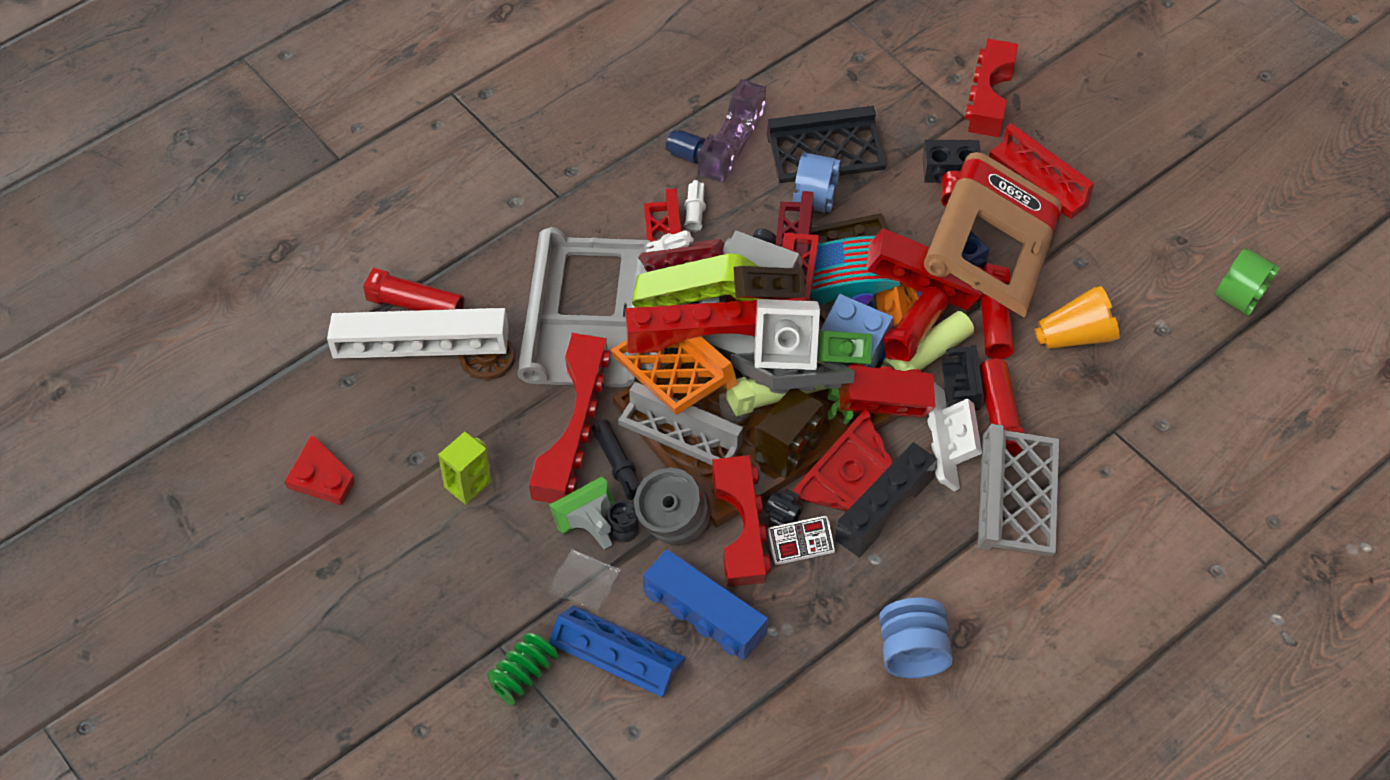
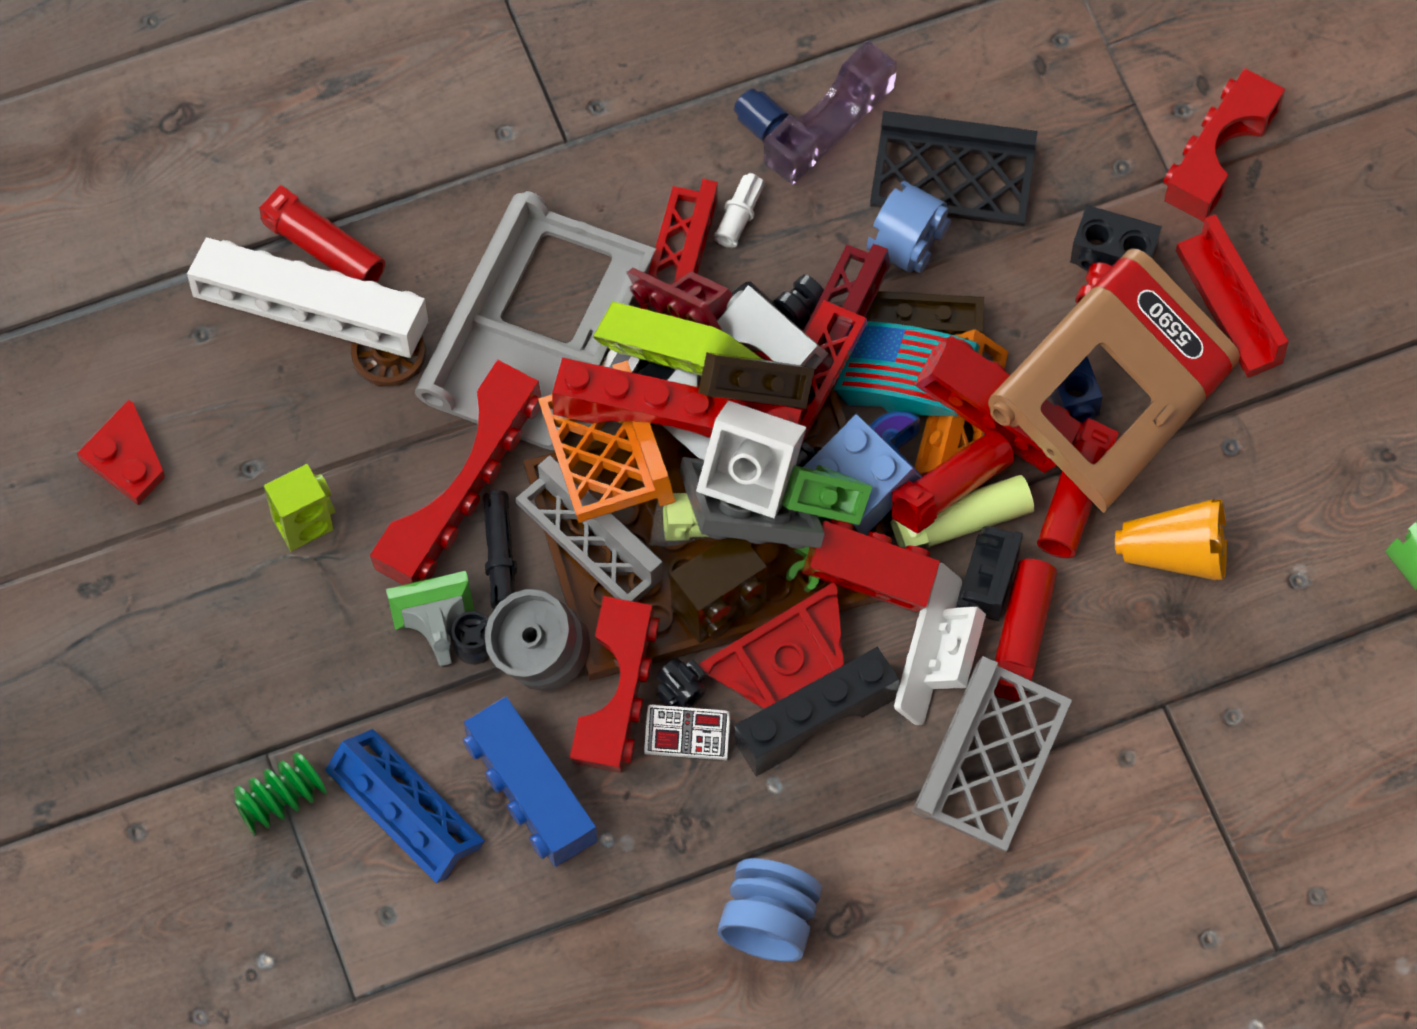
camera: 20 degrees right, 10 degrees up
(584, 581) = (399, 701): clear piece -> none
(671, 241) = (671, 267): white axle -> none

